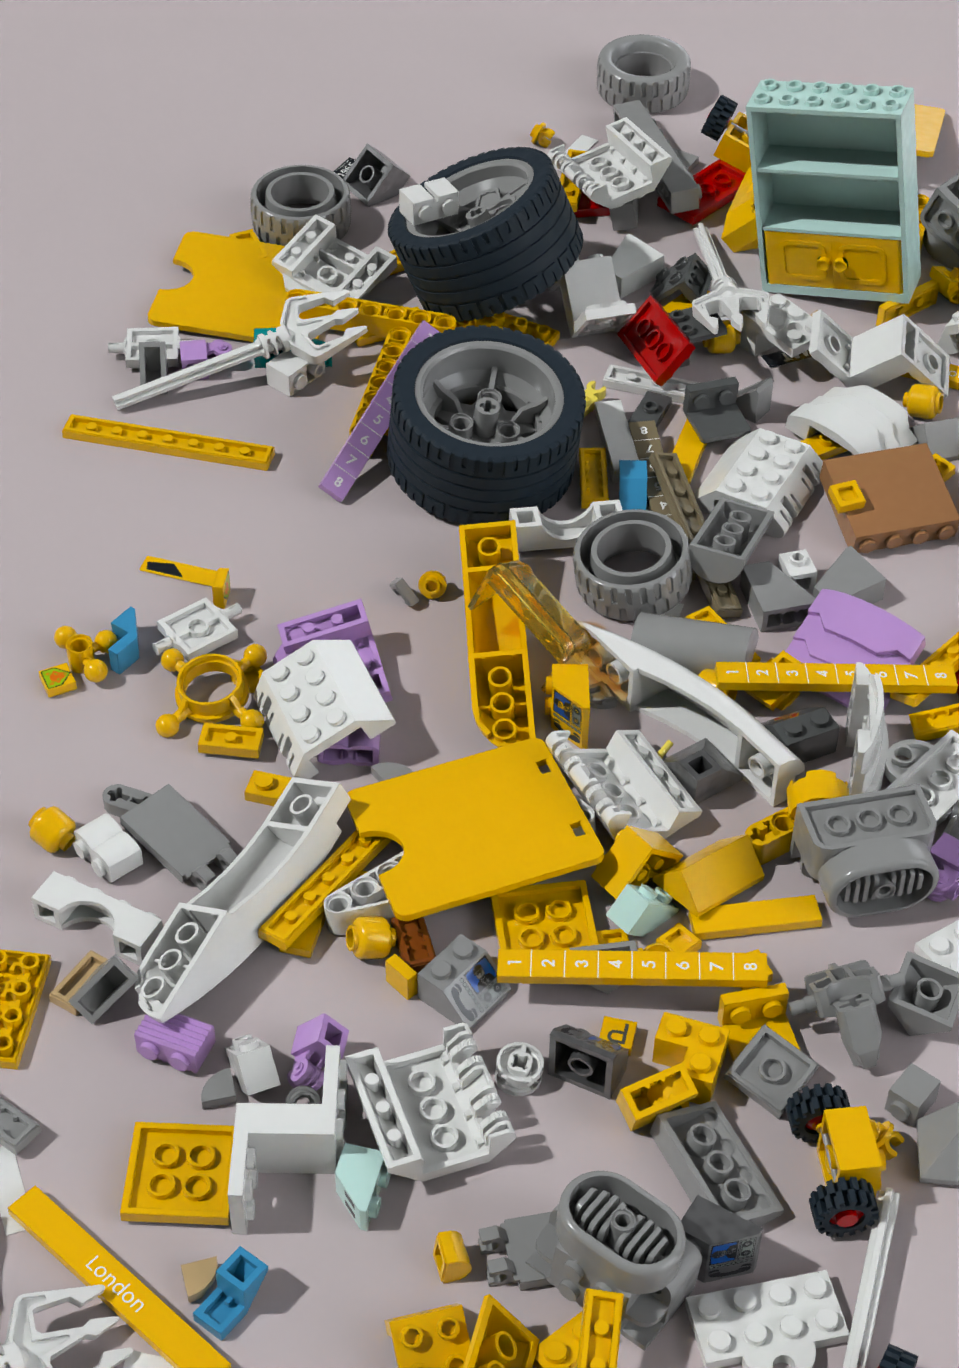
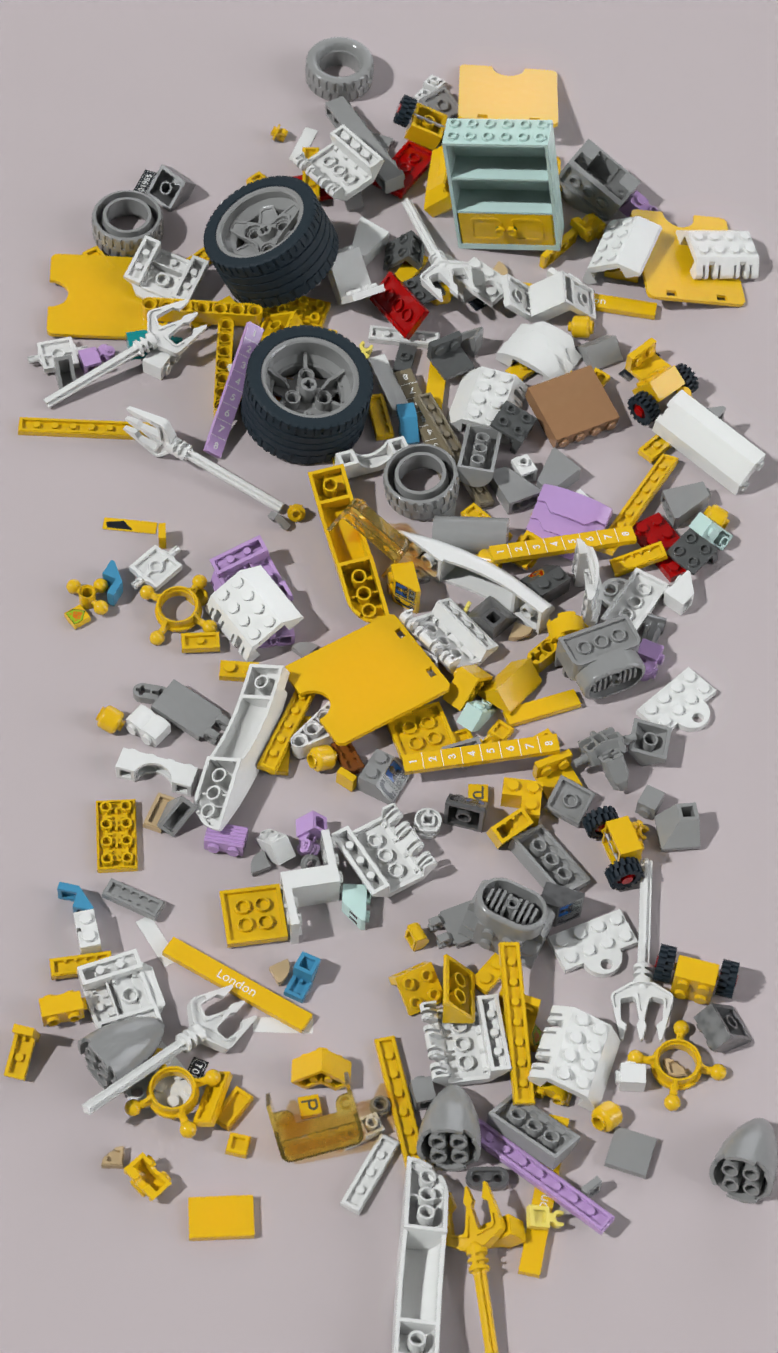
camera: 15 degrees left, 10 degrees up
(265, 466) = (164, 441): none -> white piece
(421, 207) = (227, 230): white piece -> none
(742, 798) = (520, 631): none -> tan tile
(795, 508) = (514, 424): none -> dark grey bracket
(846, 496) = (546, 412): yellow tile -> none

